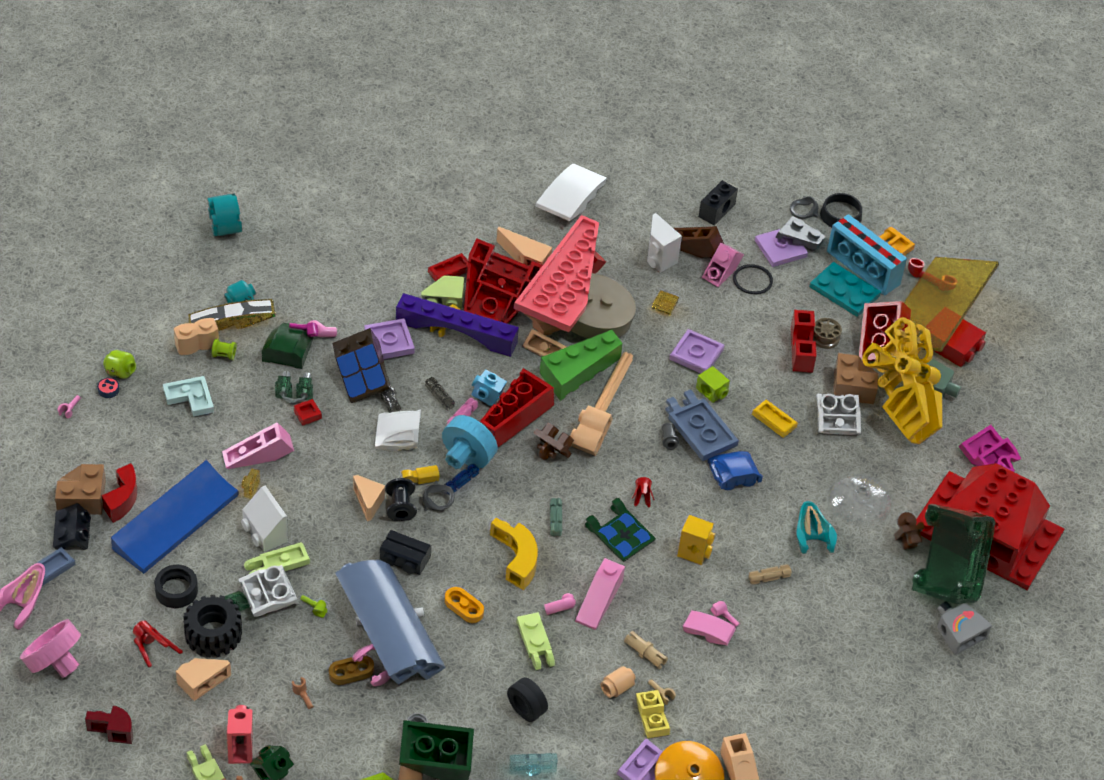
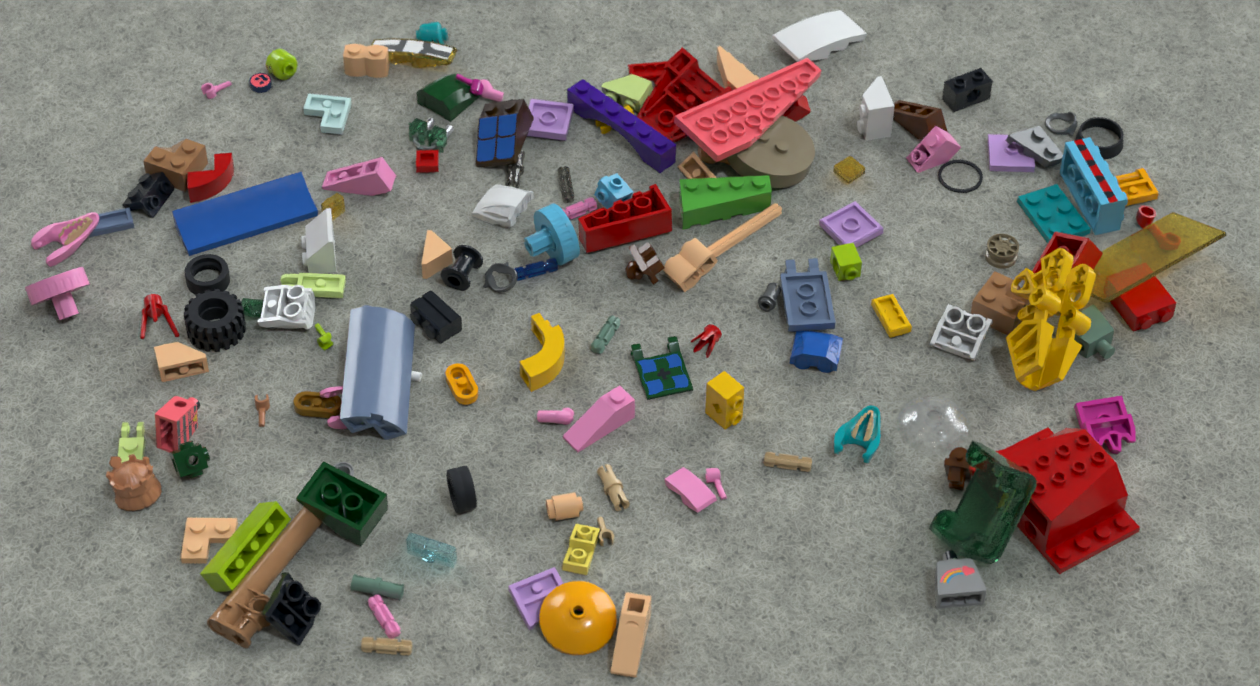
camera: 30 degrees right, 0 degrees up
(115, 724) = (74, 375): dark red brick -> none
(224, 349) = (385, 80): lime bush -> none
(422, 475) = (497, 253): yellow bar -> none
(535, 639) = (511, 439): yellowish green hinge -> none
(802, 341) = (964, 257): red arch -> none

